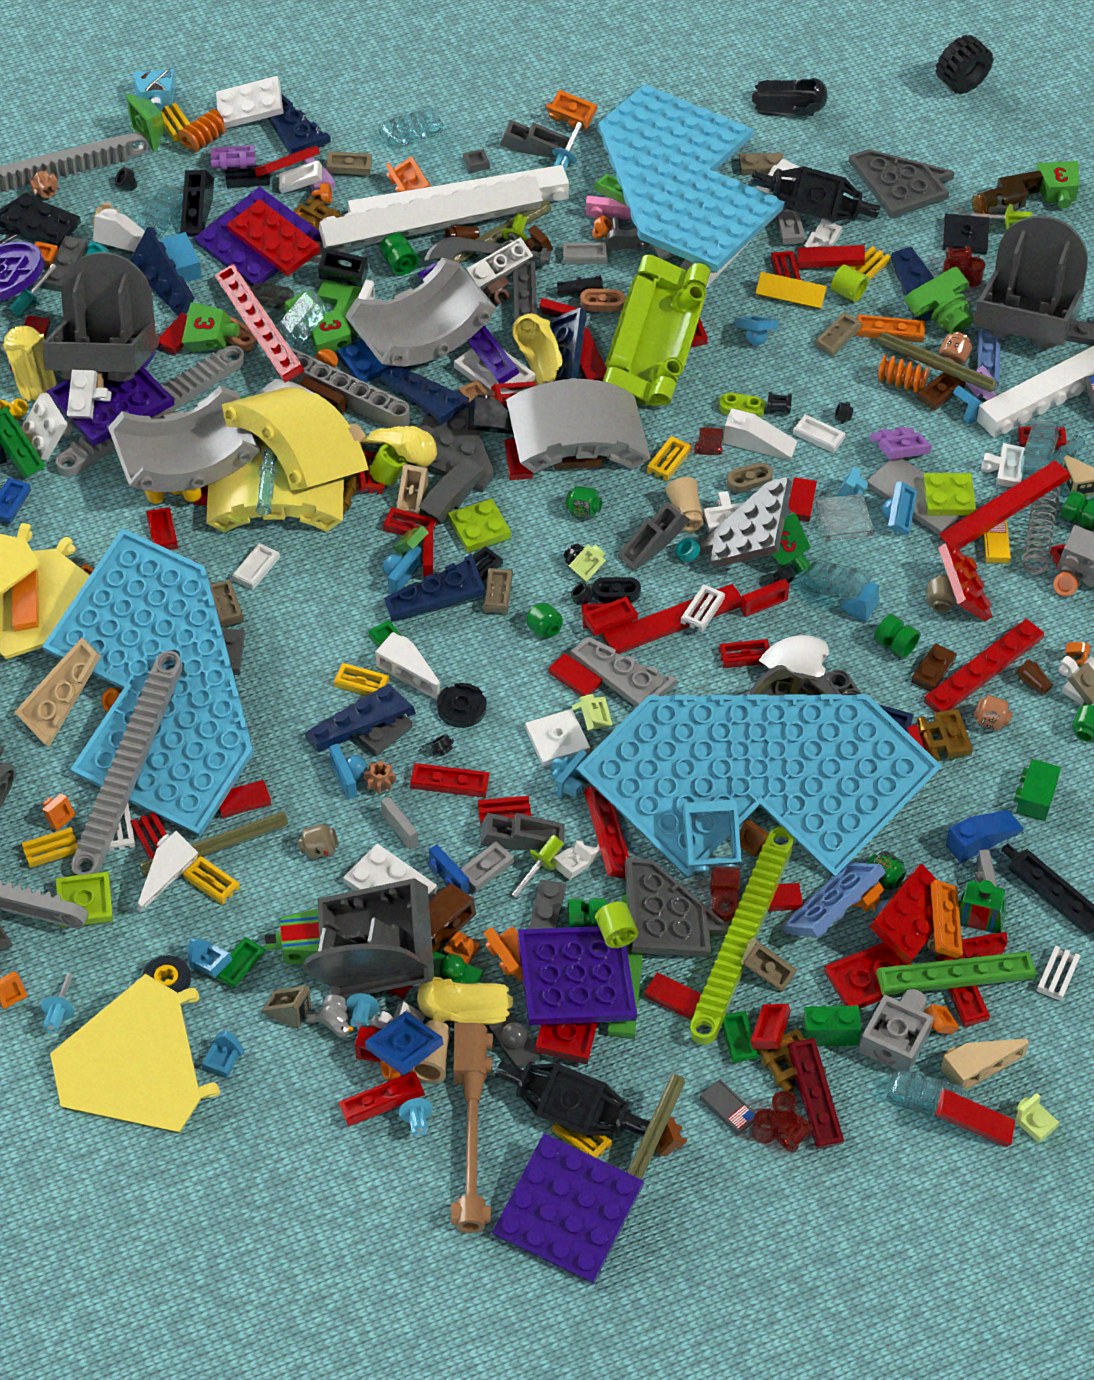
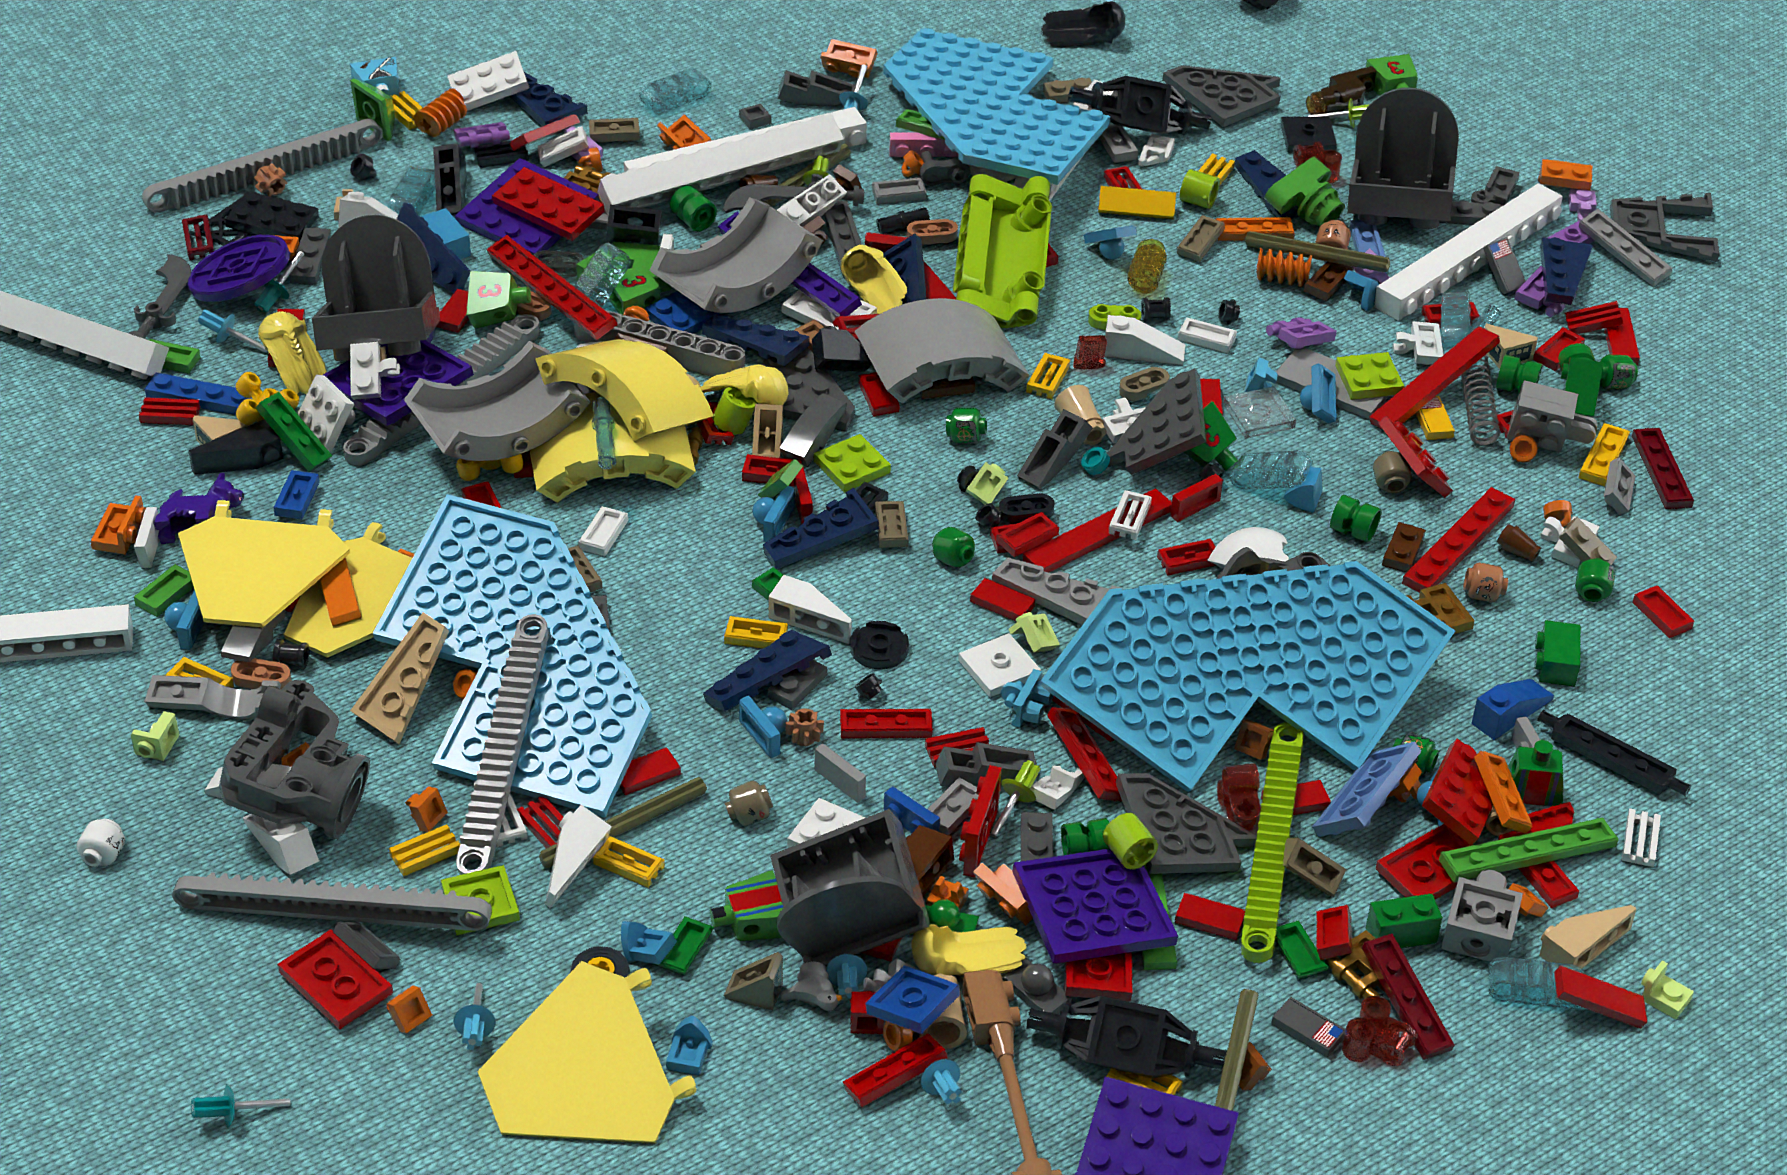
camera: 10 degrees left, 10 degrees down
(502, 885) = (983, 815): none -> red plate
(709, 808) = (1209, 704): medium azure window -> none
(782, 358) = (1147, 266): none -> clear yellow piece
(831, 256) = (1170, 167): red tile -> none

